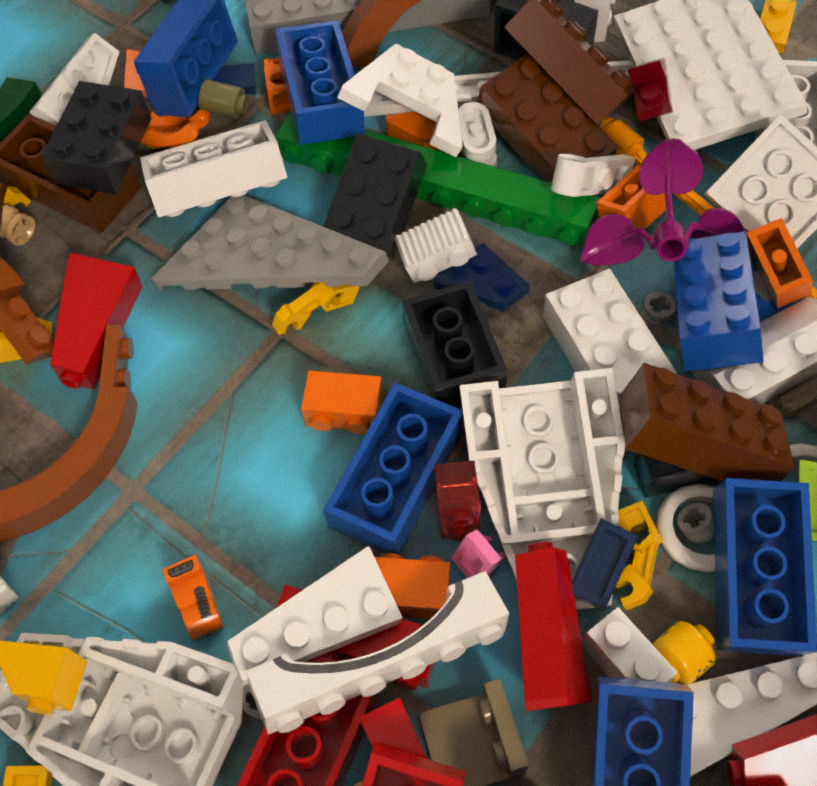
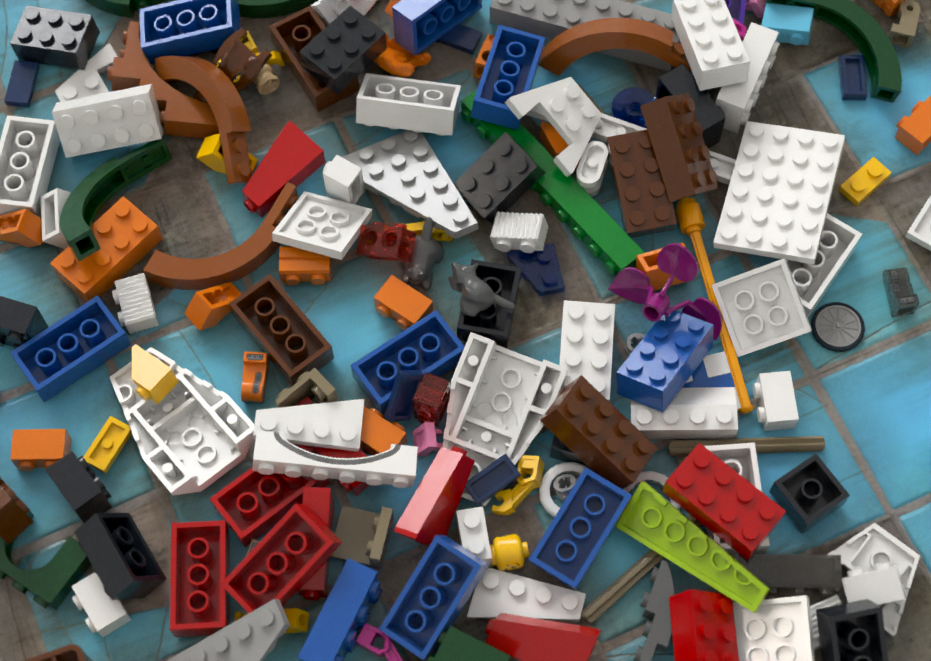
camera: 25 degrees right, 5 degrees up
(82, 530) = (211, 305): none -> orange arch
(180, 290) = (343, 180): none -> white piece
(181, 356) = (322, 225): none -> white plate
(184, 416) = (303, 266): none -> orange brick
(199, 514) = (281, 329): none -> reddish brown brick
(223, 99) = (445, 51): olive brick -> none
(279, 342) = (386, 242): none -> clear red brick
(281, 565) = (309, 385): none -> dark tan bracket
(332, 329) = (425, 254): none -> dark grey animal
(419, 512) = (402, 394): none -> dark blue tile
(435, 333) = (475, 293): none -> dark grey animal
(479, 56) = (631, 100): none -> clear blue dish
(589, 176) = (635, 233): white plate -> none
(651, 89) = (726, 191): dark red slope -> none
(779, 263) = (723, 356): orange brick -> none

